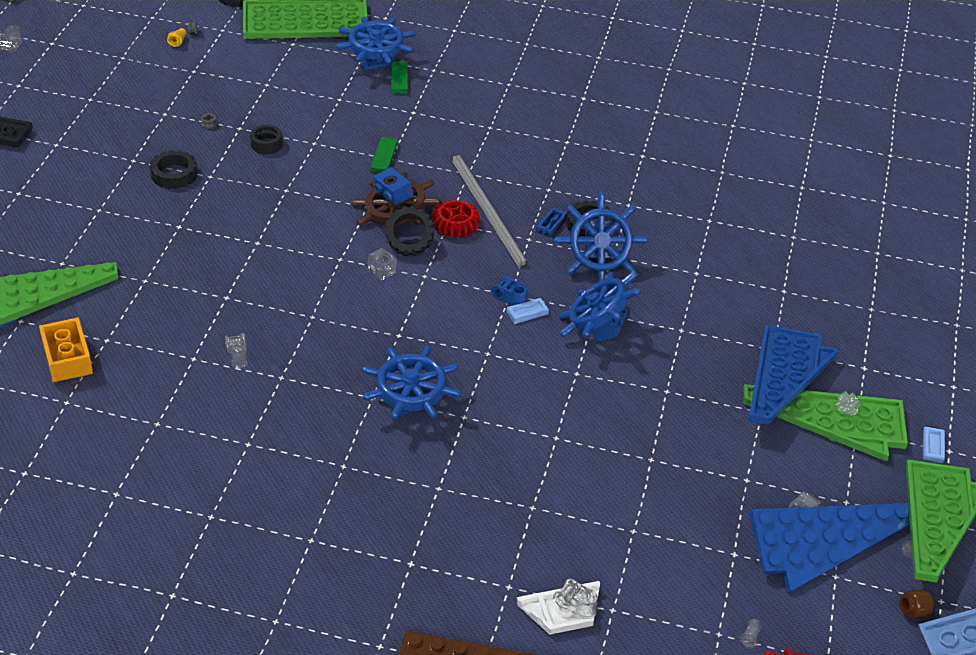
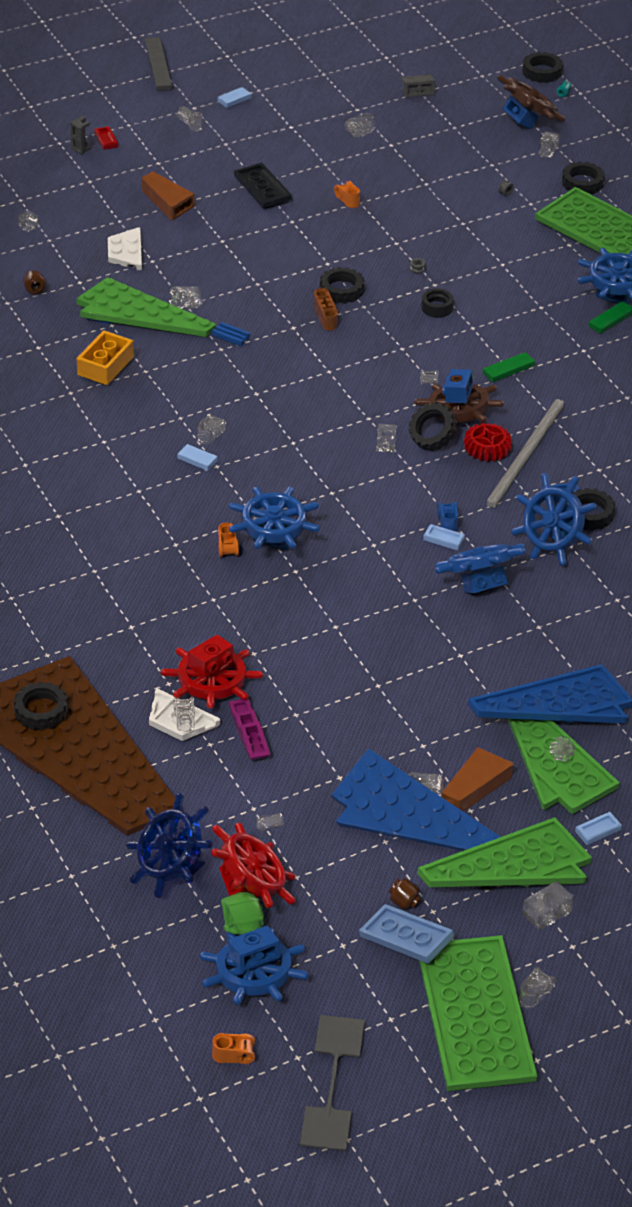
camera: 50 degrees right, 0 degrees up
(60, 256) = (187, 297): none -> clear piece
(77, 96) = (348, 194): none -> orange piece
(138, 262) = (231, 334): none -> blue tile
(176, 37) = (483, 189): yellow cone -> none
(190, 195) = (325, 309): none -> dark orange beam
(258, 380) = (197, 457): none -> light blue tile
(343, 198) = (428, 377): none -> clear bush
(386, 430) = (227, 541): none -> orange piece
(538, 536) = (209, 664): none -> red piece
(626, 572) = (249, 729): none -> magenta slope
(823, 472) = (477, 779): none -> dark orange slope

